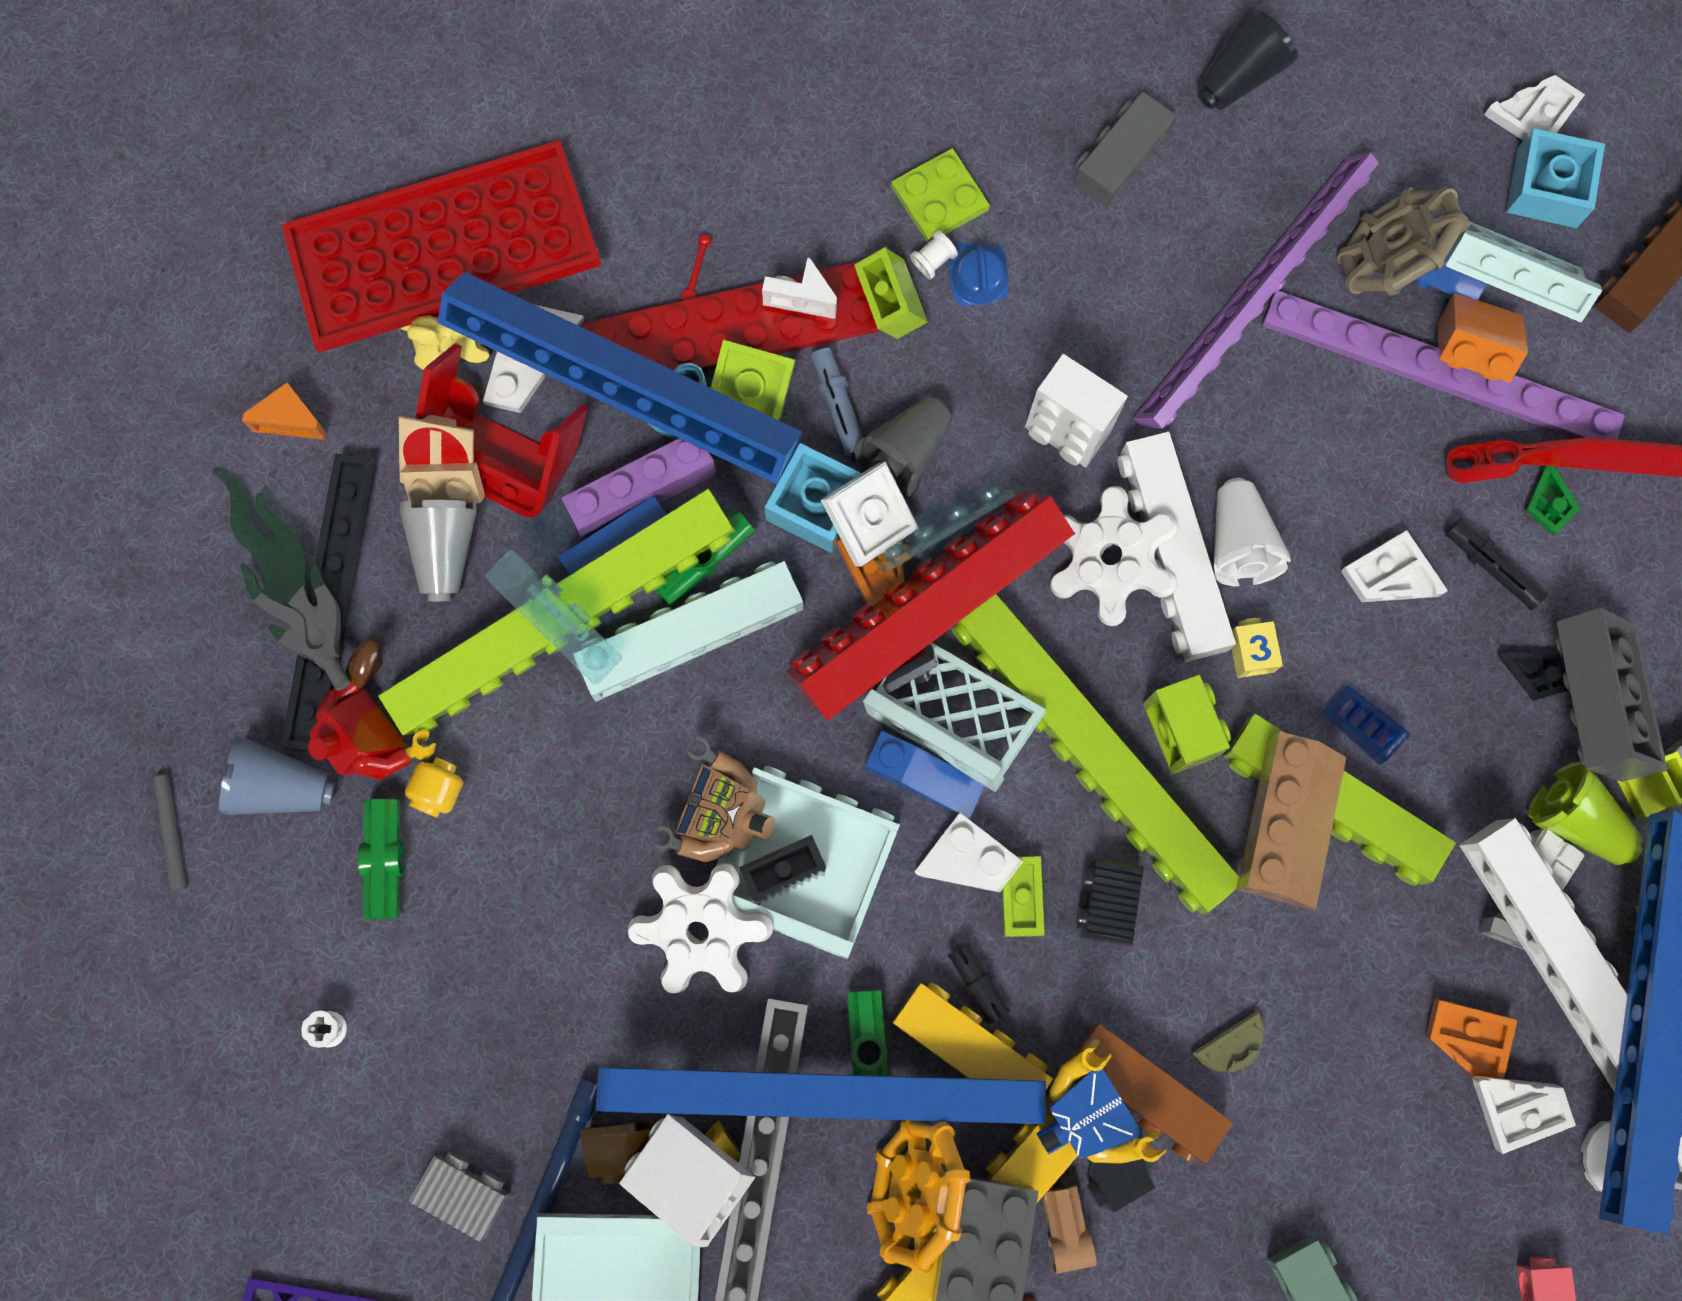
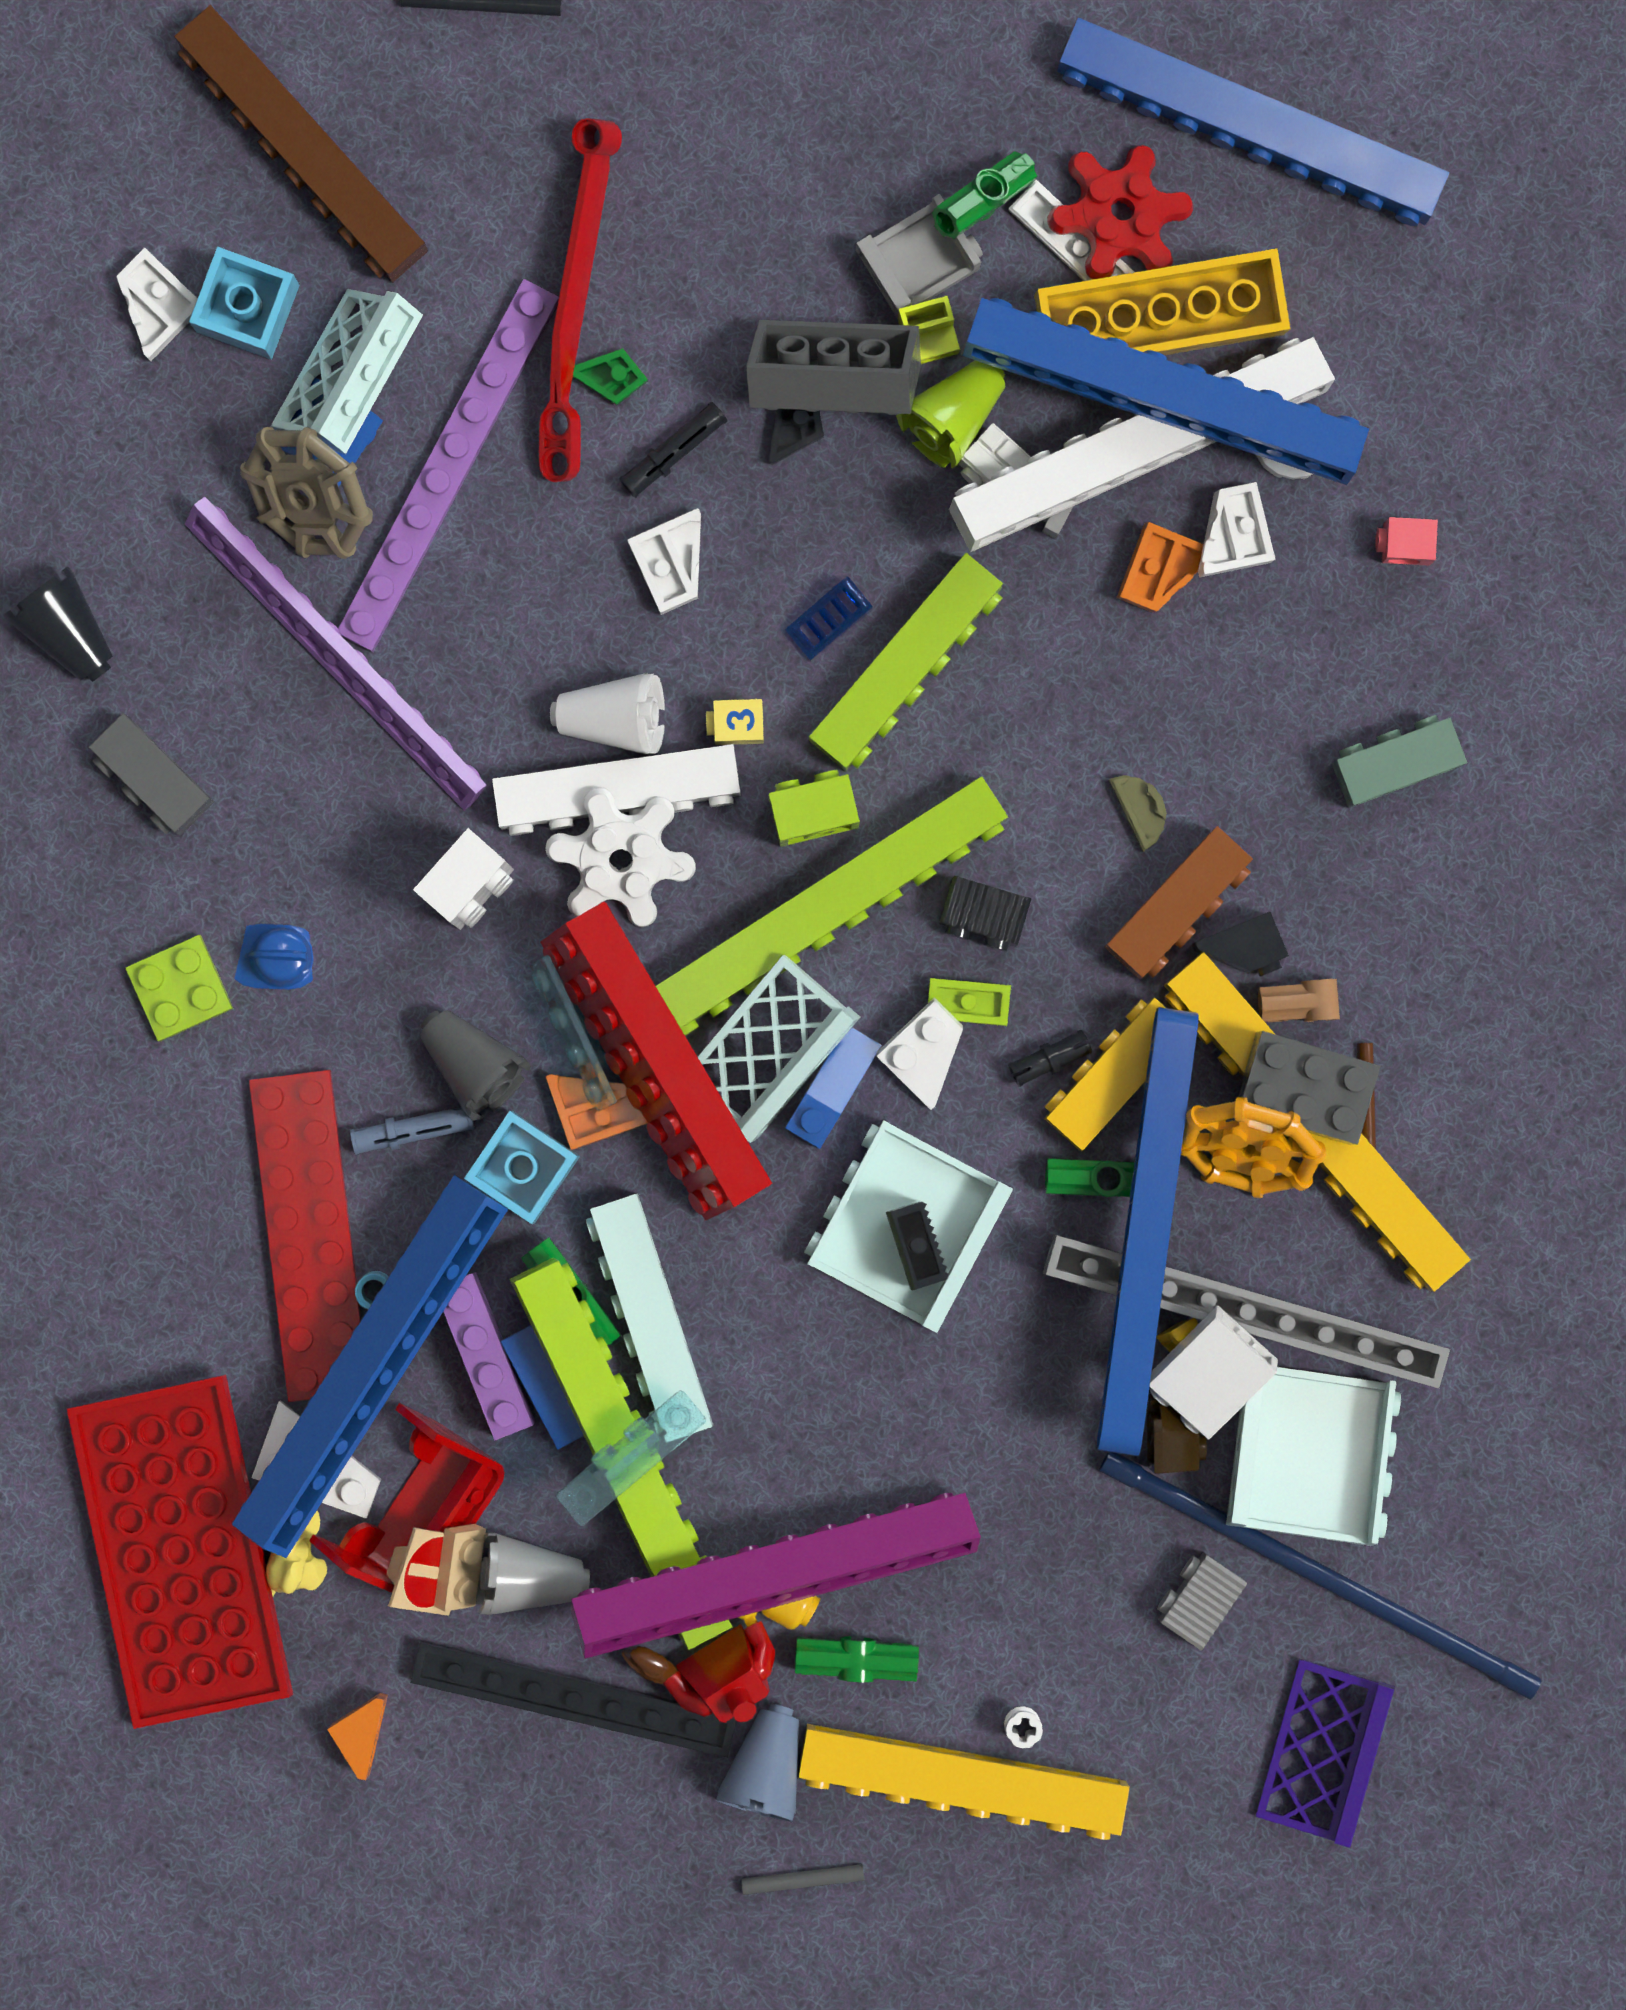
camera: 90 degrees left, 10 degrees up
(269, 979) = (963, 1780): none -> yellow brick
(285, 596) = (560, 1743): piece -> none
(454, 767) = (774, 1574): none -> magenta brick
(704, 241) = (203, 1258): red hinge -> none
(706, 904) = (944, 1325): white plate -> none
(719, 812) = (847, 1303): medium nougat torso -> none
(753, 377) = (381, 1221): lime plate -> none
(809, 297) = (293, 1146): white slope -> none
(869, 514) = (550, 1112): white tile -> none
(890, 293) = (297, 1058): lime brick -> none
(915, 668) = (725, 1083): black piece -> none
(934, 254) = (252, 1004): white bush -> none
(1094, 1115) = (1195, 964): torso -> none
(1292, 820) = (927, 718): medium nougat slope -> none
(1481, 338) = (424, 422): orange brick -> none

